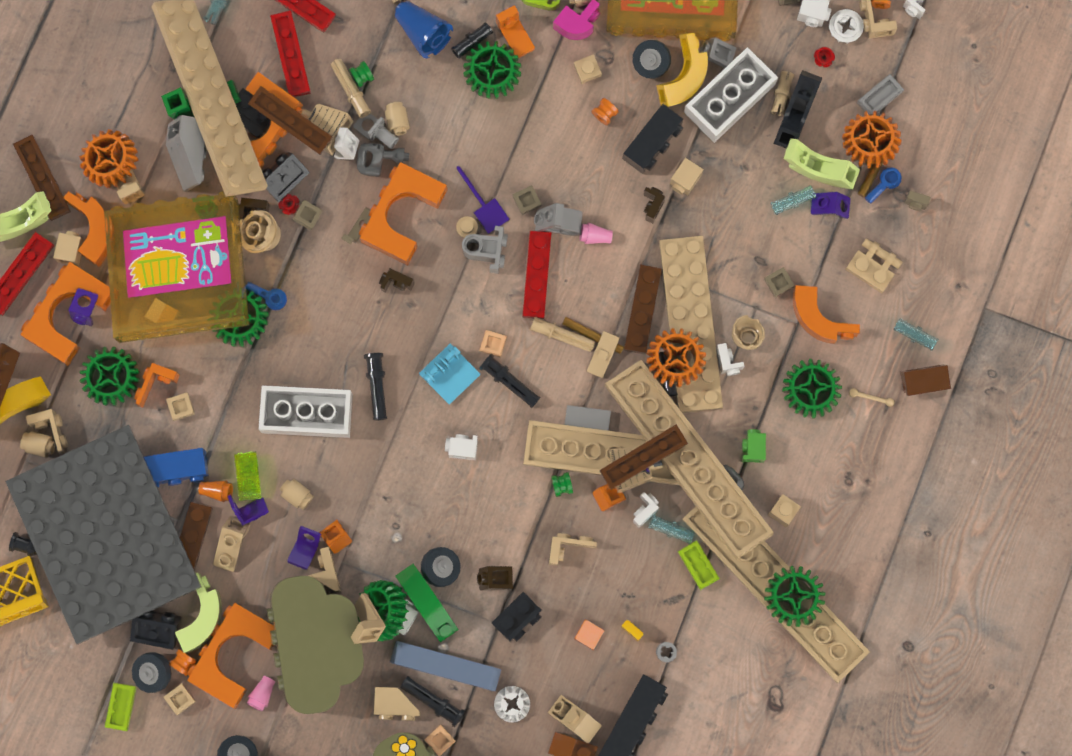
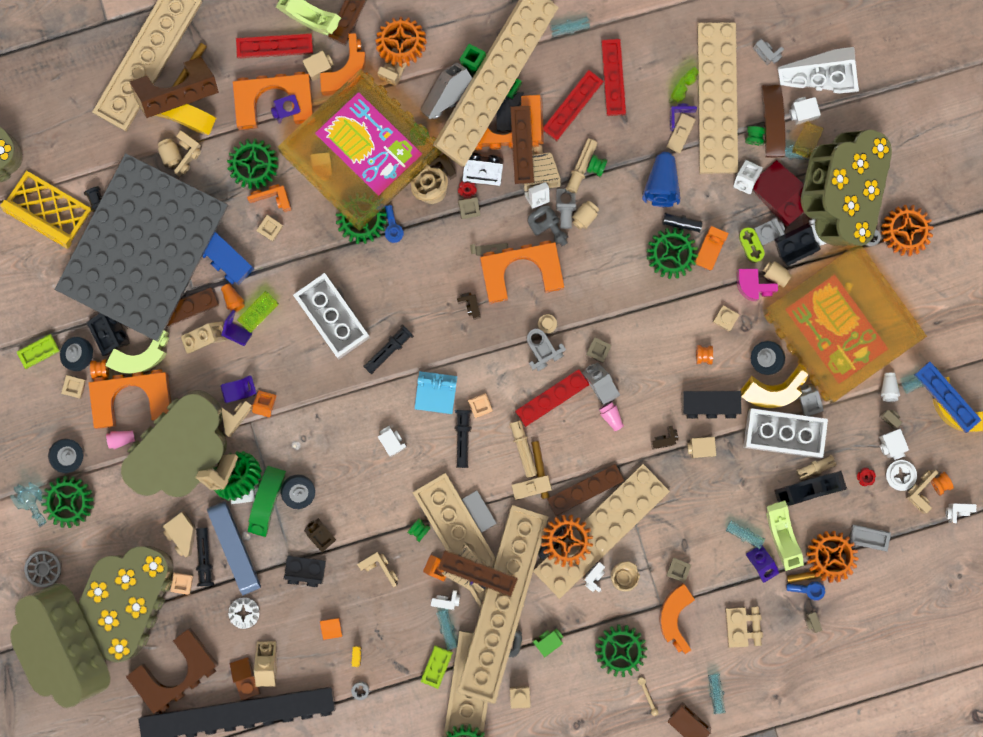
camera: 50 degrees right, 5 degrees up
(296, 494) = (271, 354): tan brick -> none
(490, 213) = (568, 332): dark purple piece -> none

